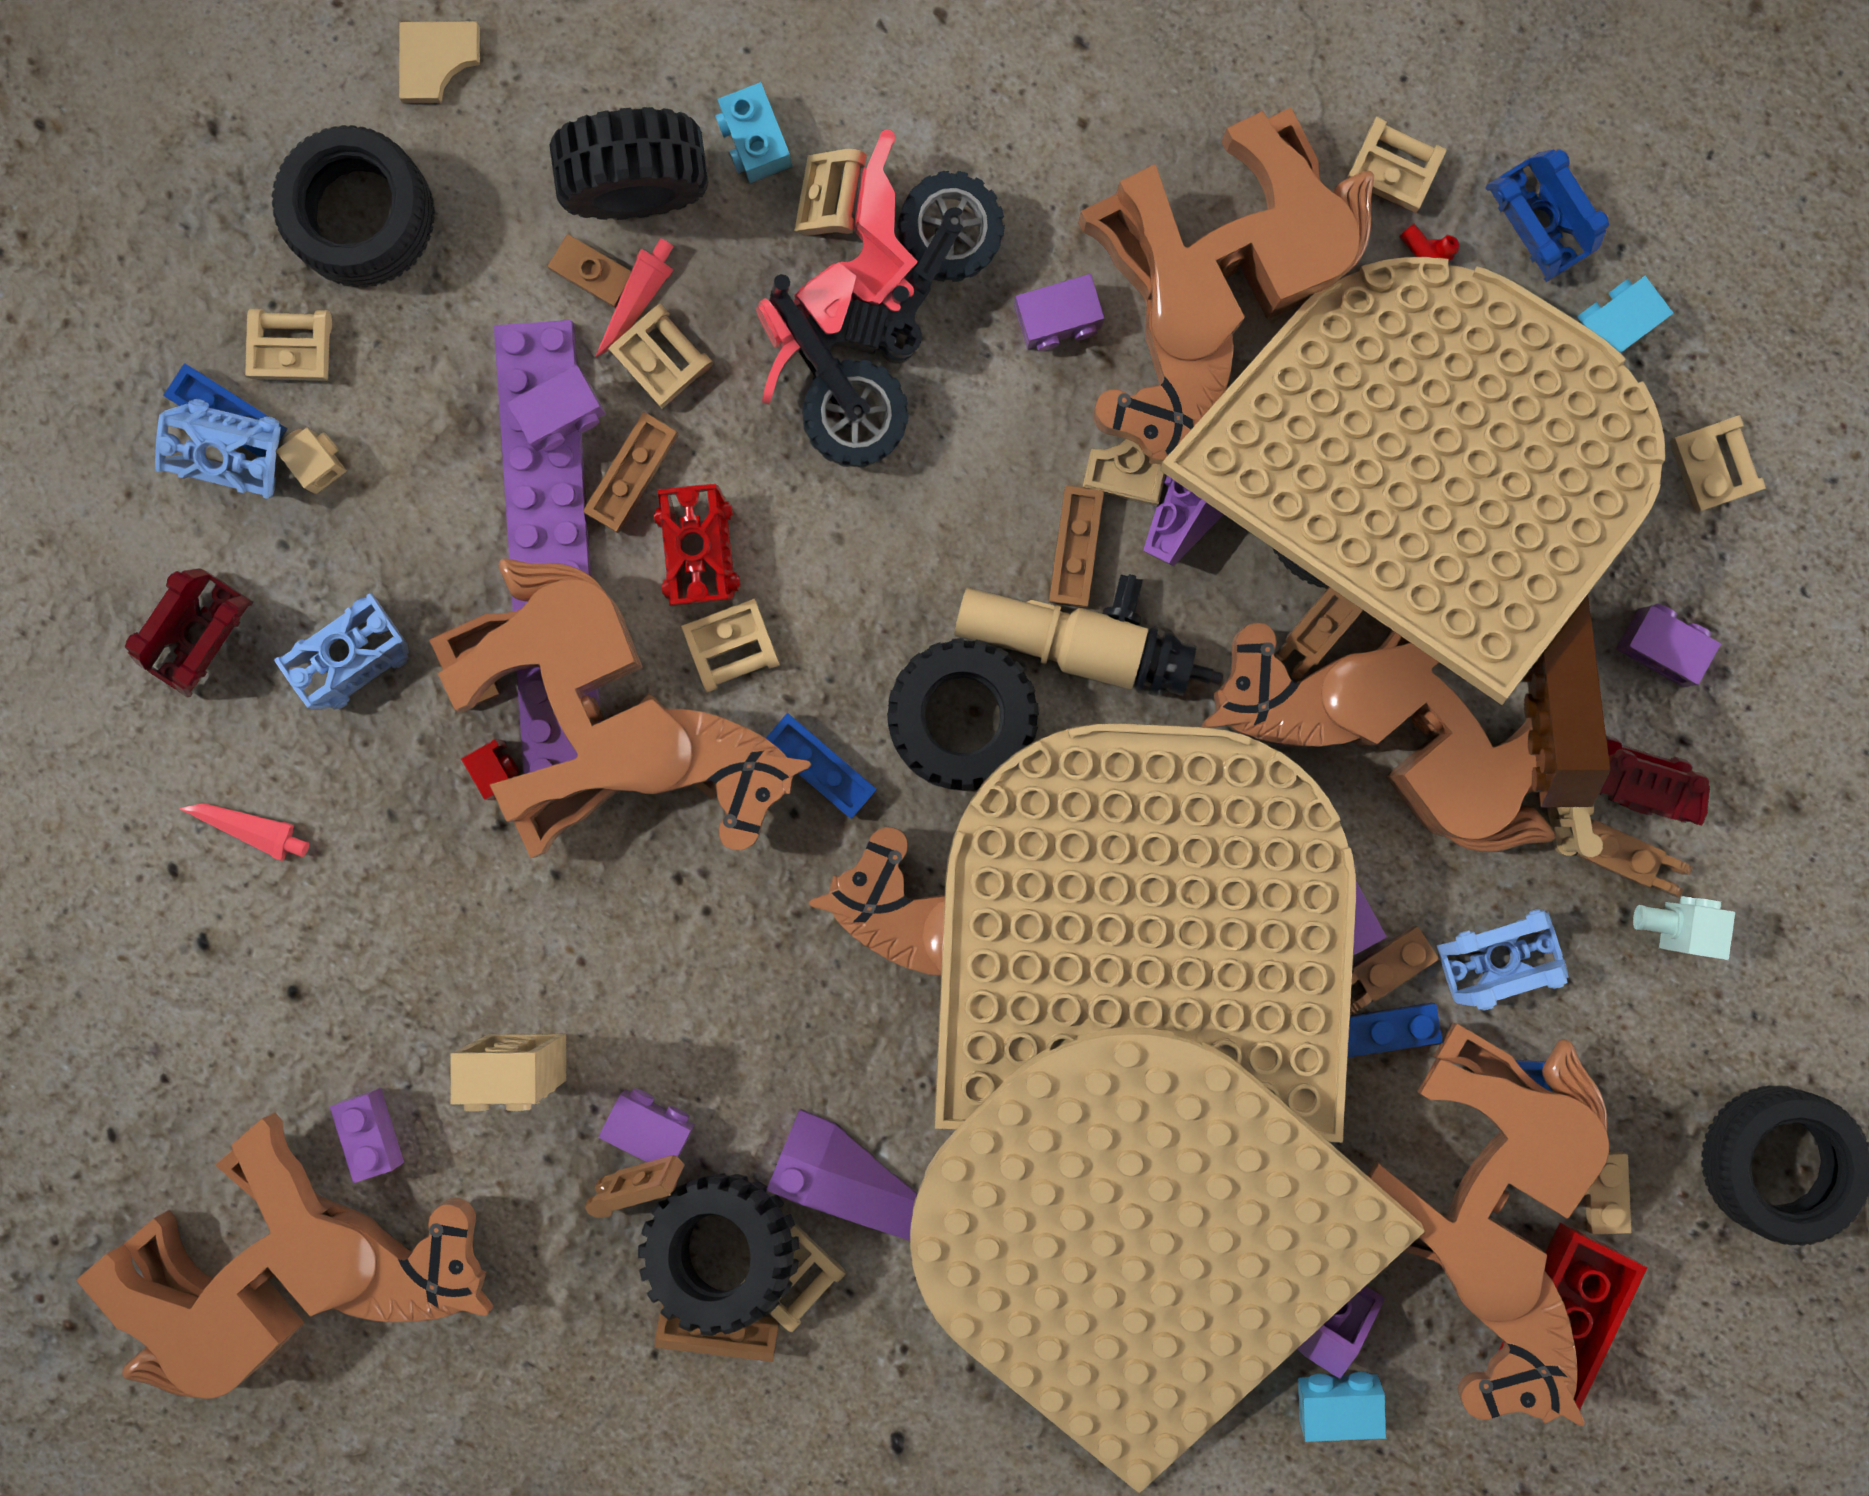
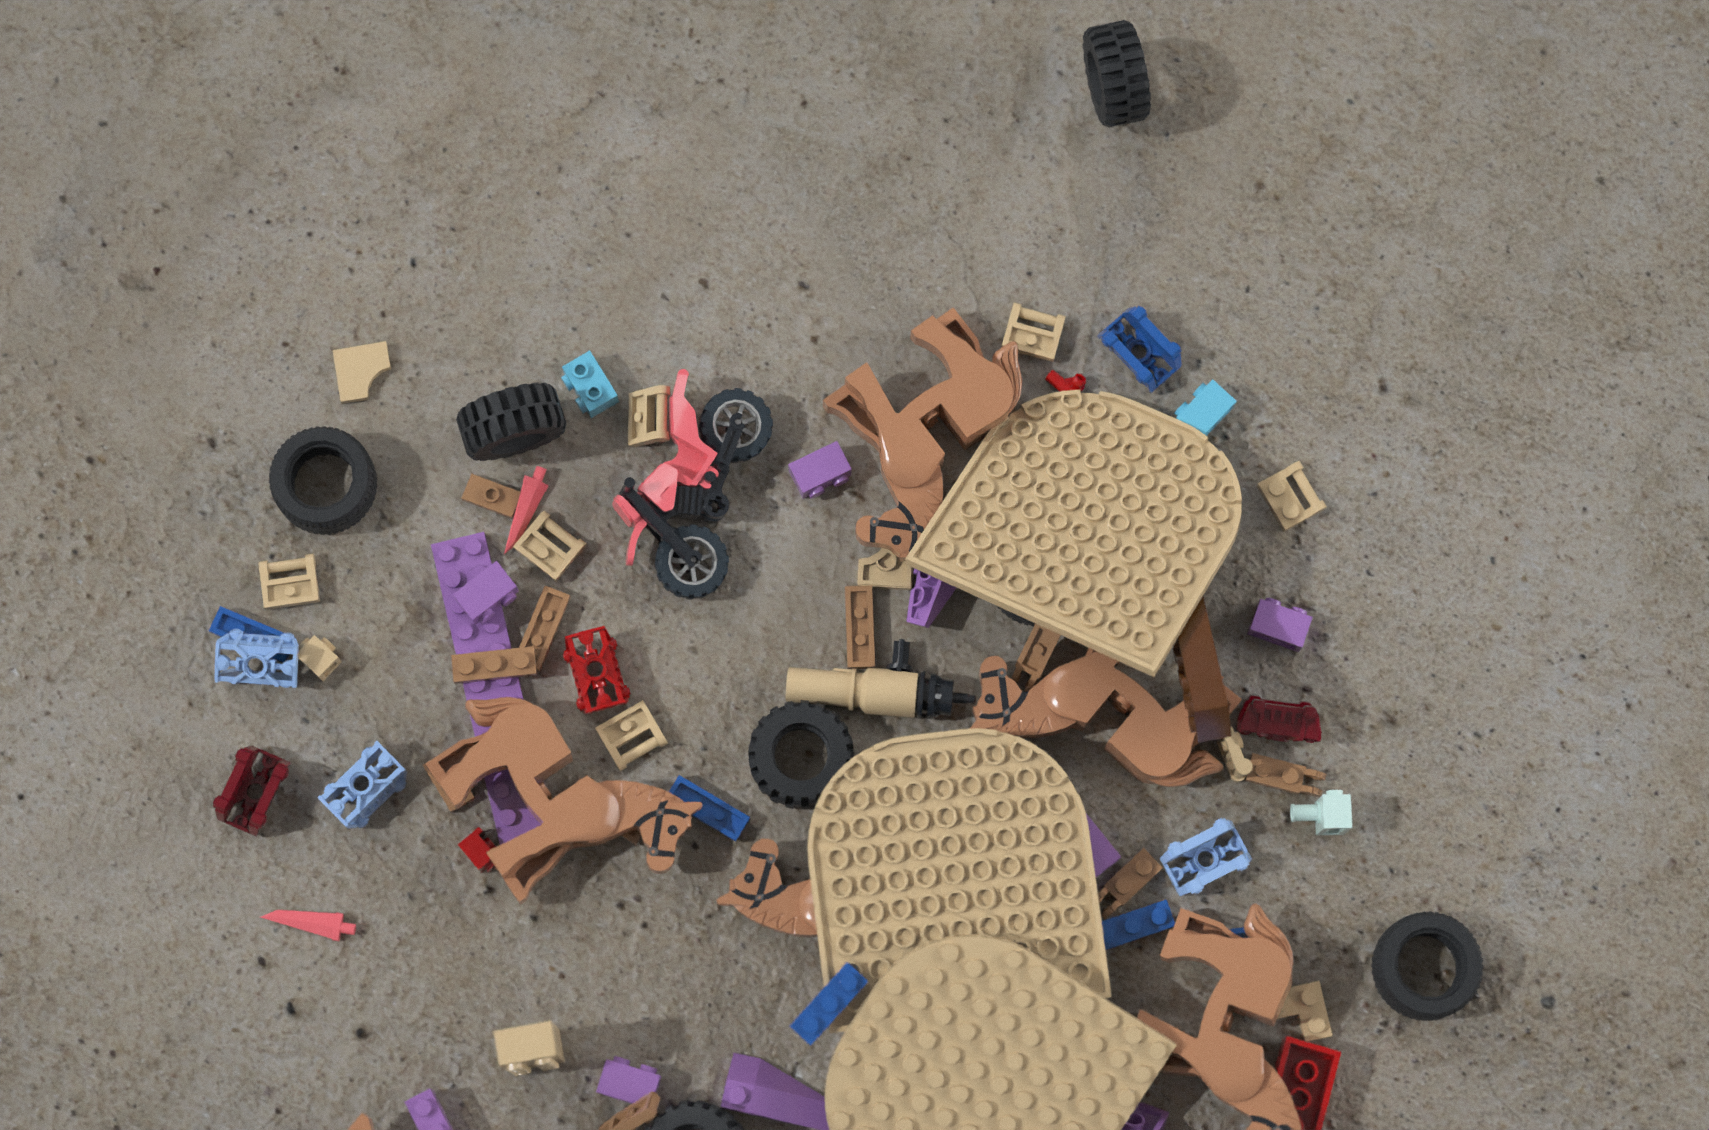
camera: 10 degrees left, 10 degrees down
(553, 513) = (494, 665): none -> medium nougat plate
(940, 1089) = (828, 1003): none -> blue plate

